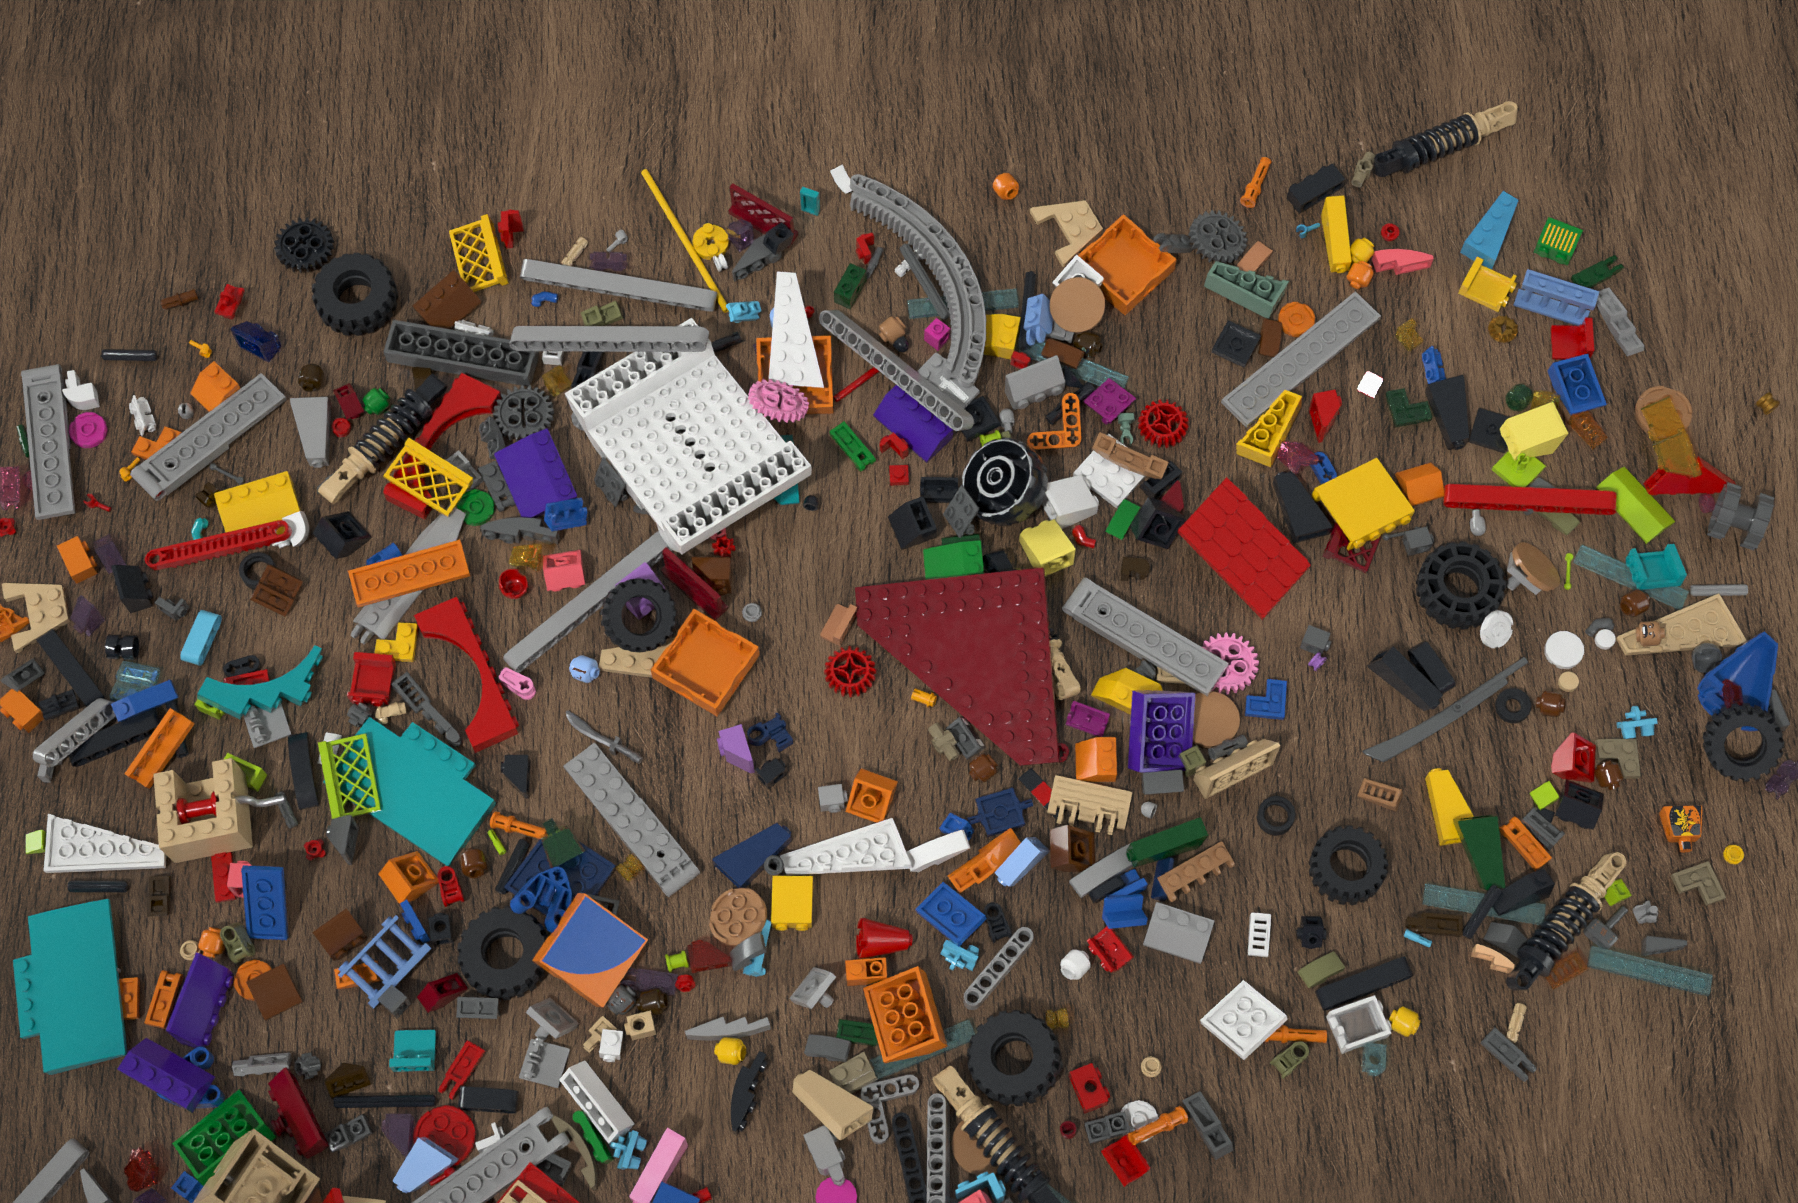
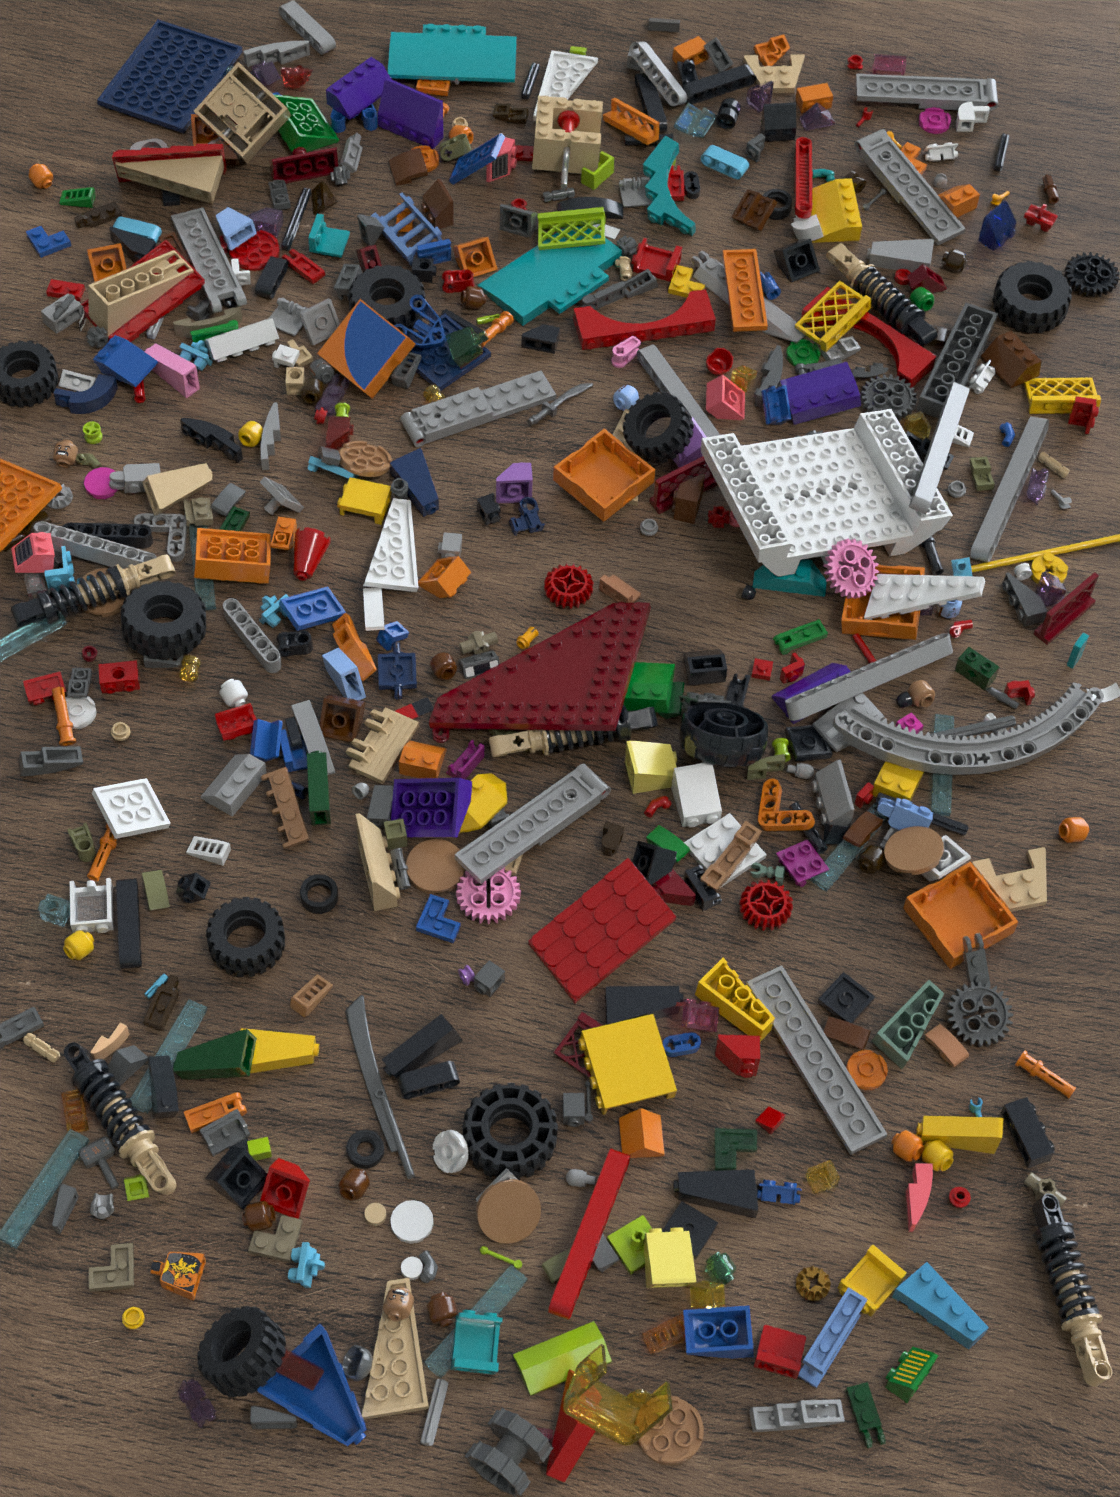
camera: 100 degrees right, 10 degrees down
(144, 700) = (674, 115): blue slope -> none
(778, 238) = (1034, 603): black brick -> none
(1481, 911) = (158, 1043): black axle -> none

